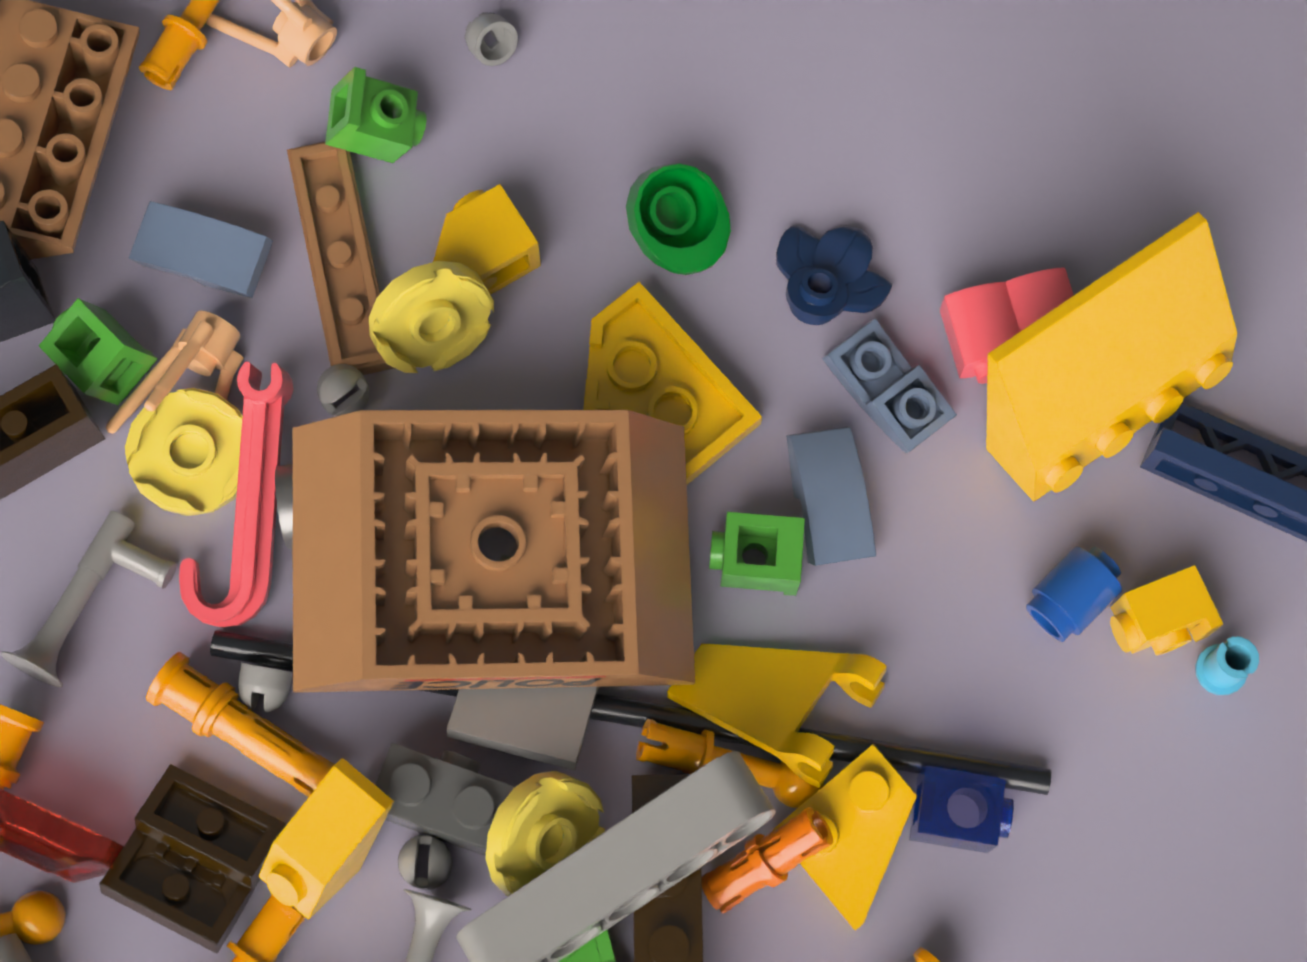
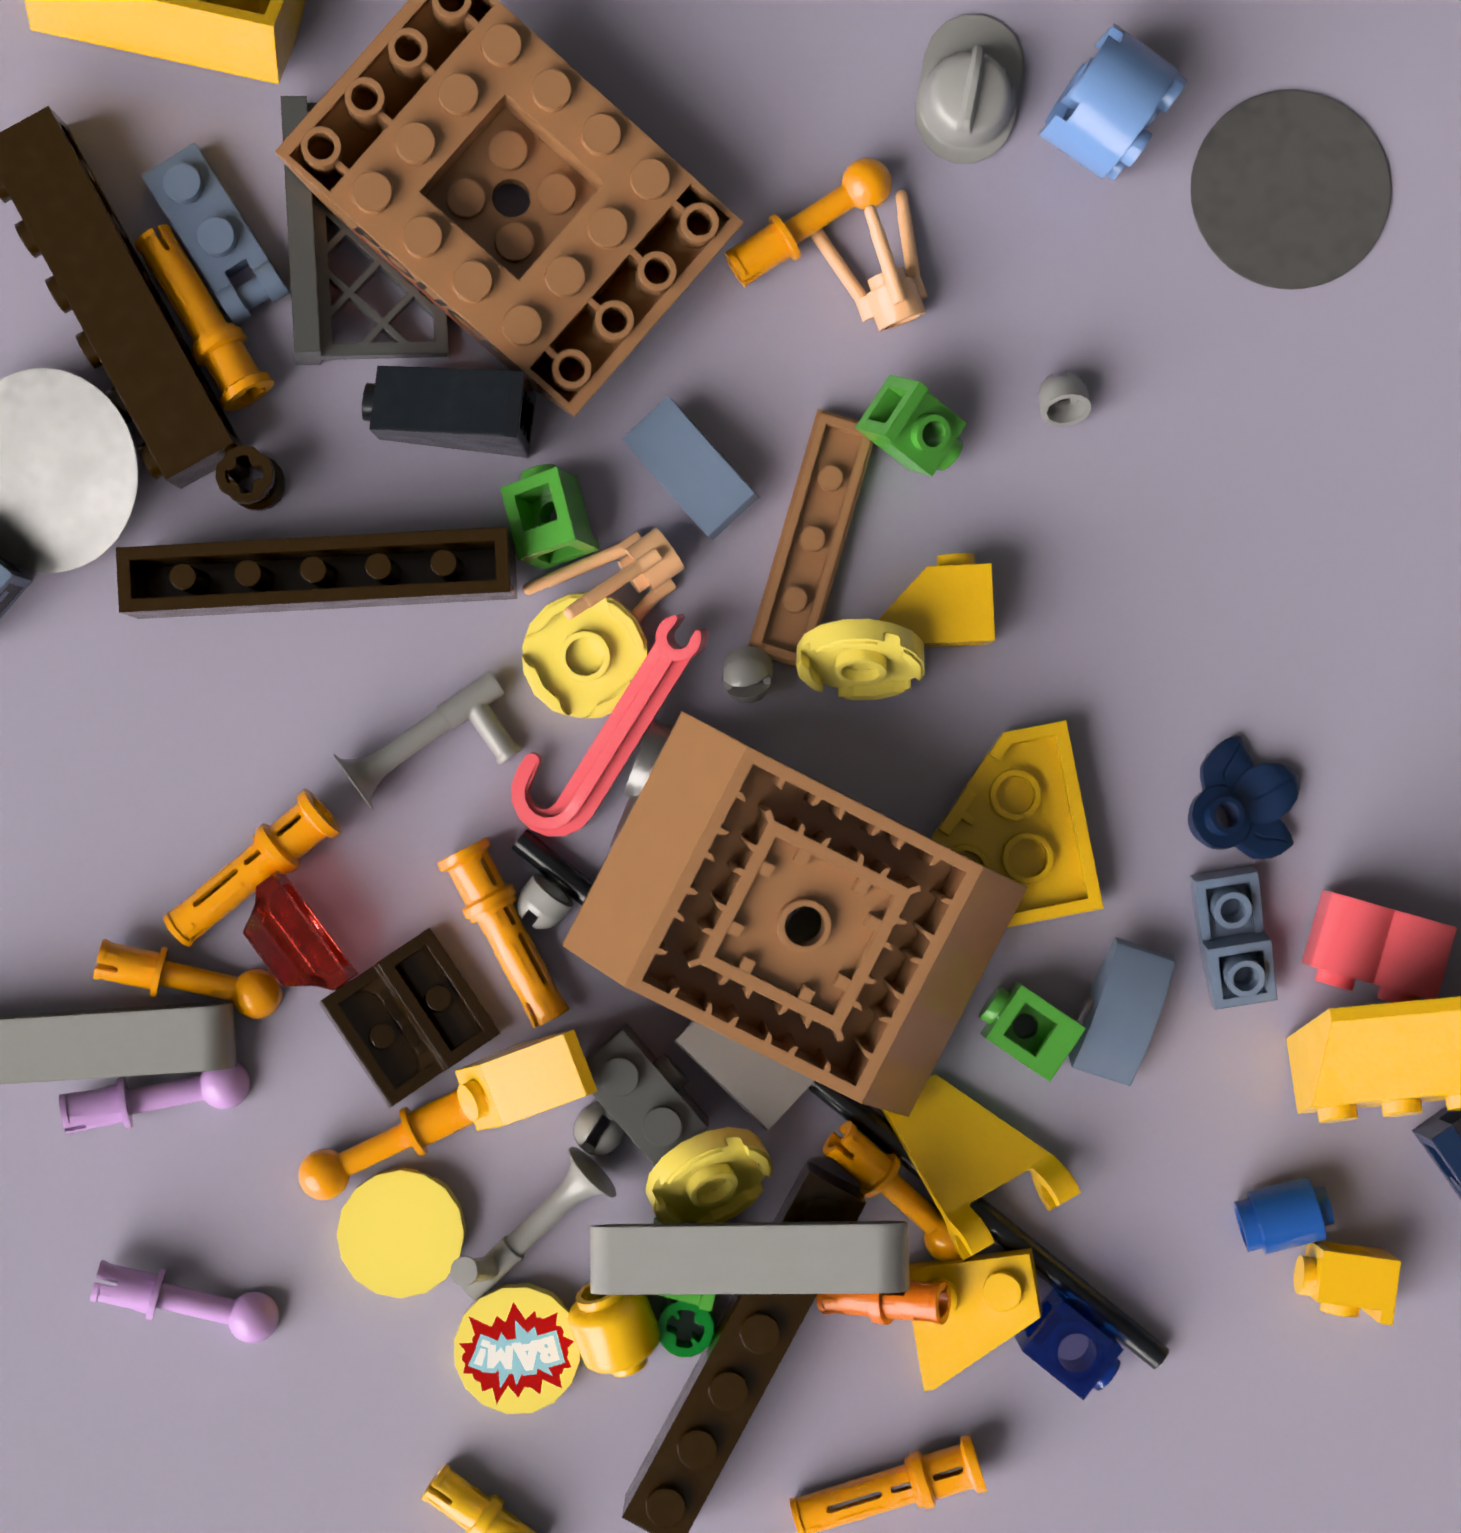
camera: 35 degrees right, 15 degrees up
(678, 218) = (1136, 676): green hat -> none
(1226, 665) = (1373, 1353): medium azure pin -> none

